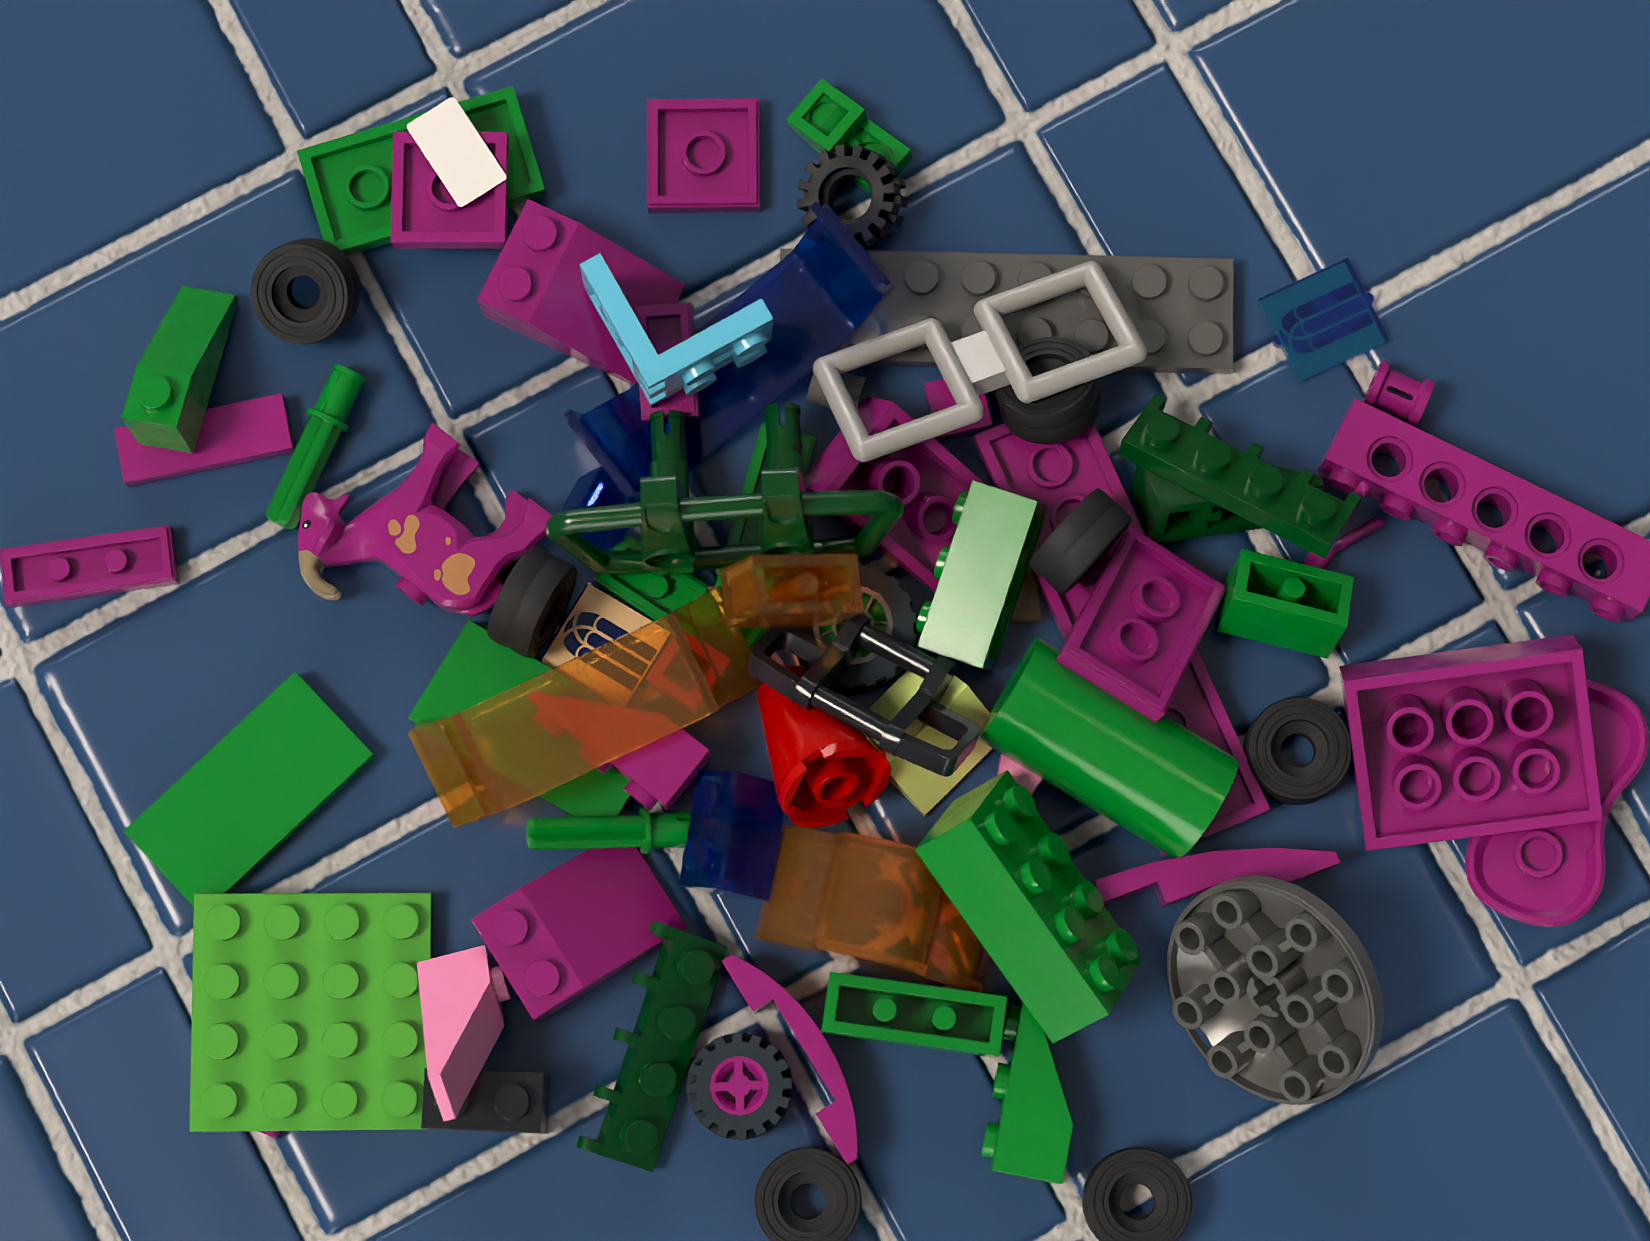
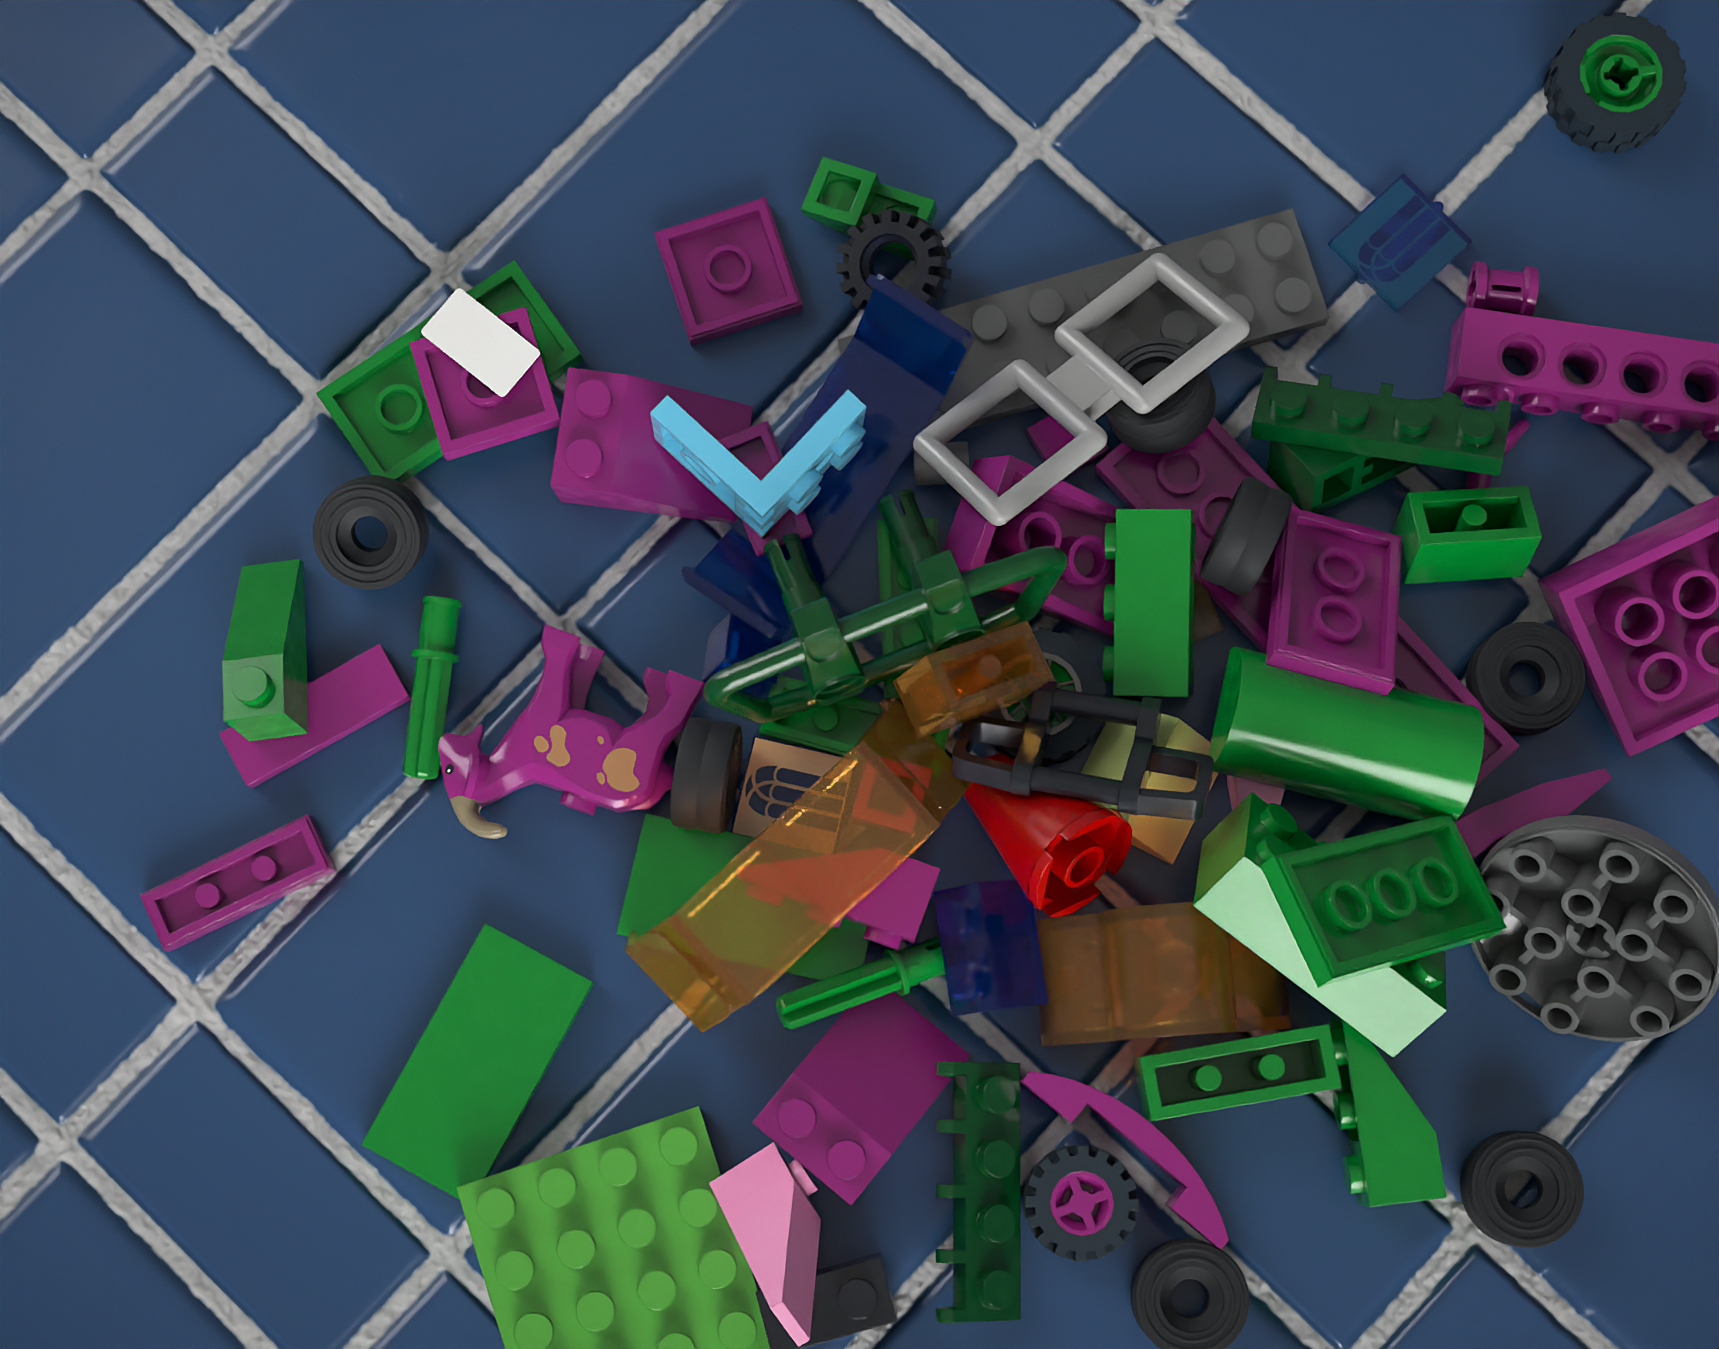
camera: 15 degrees left, 0 degrees up
(1085, 897) = (1382, 898): none -> green tile
(1541, 251) = (1595, 108): none -> black wheel

